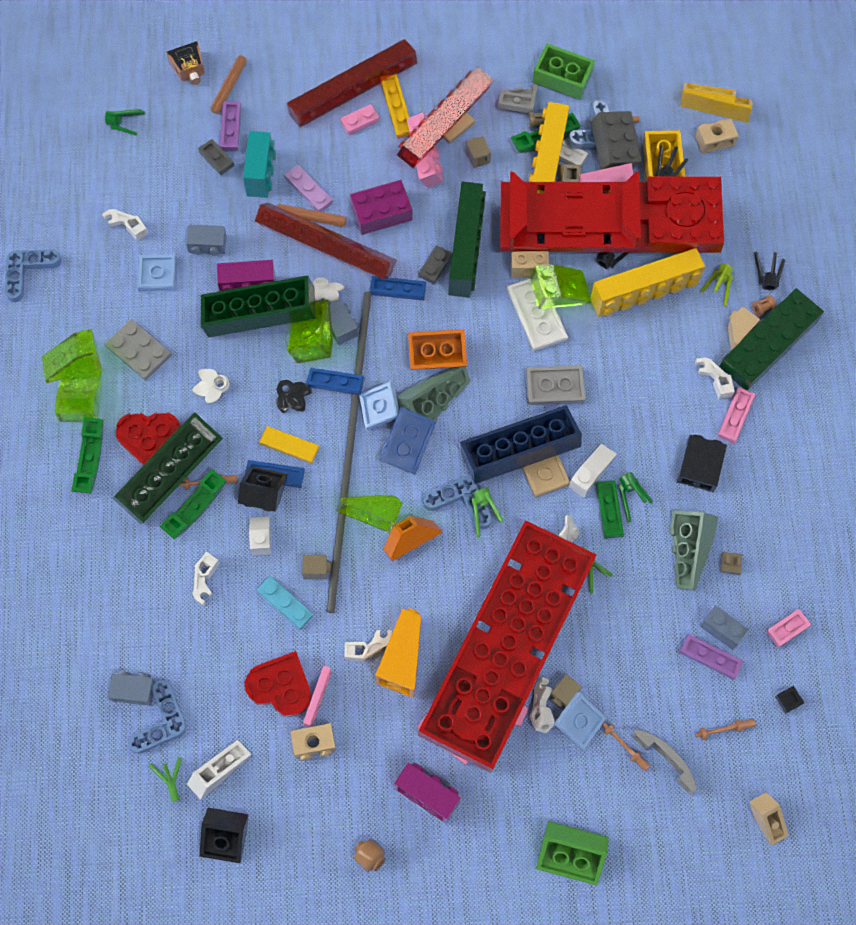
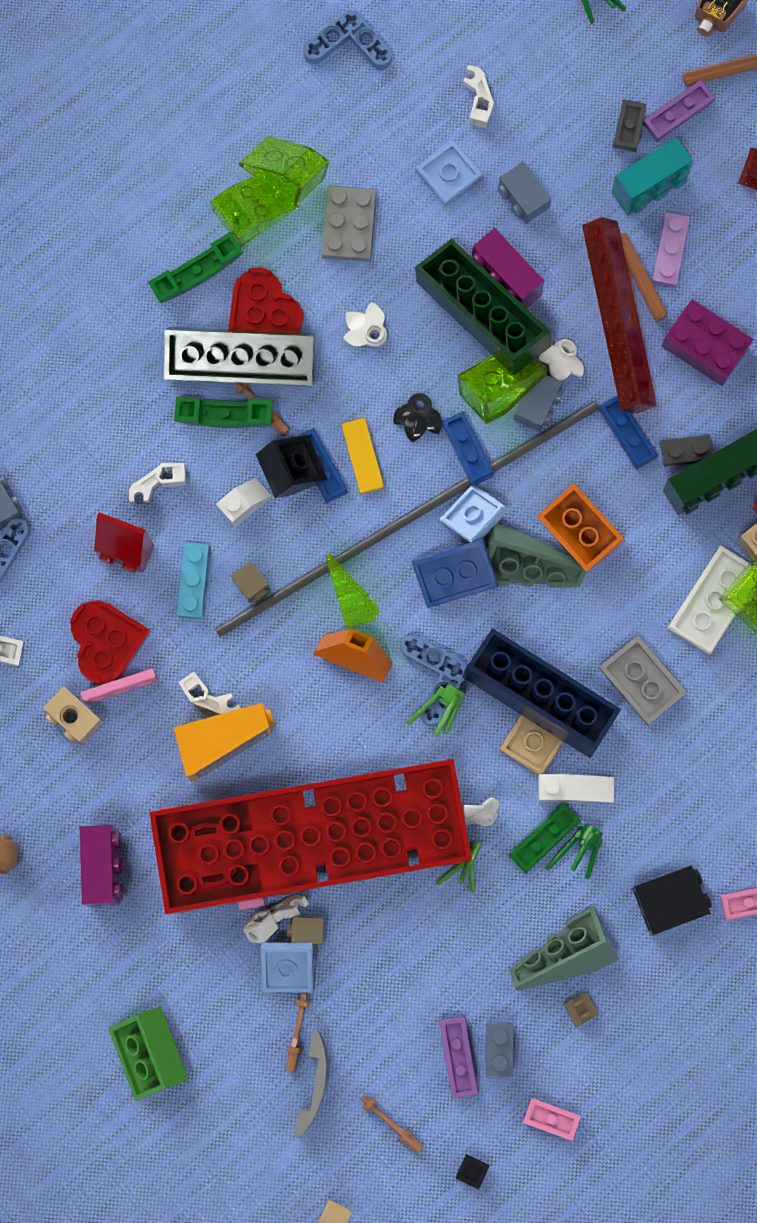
camera: 60 degrees right, 10 degrees up
(227, 624) = (122, 543): none -> red slope

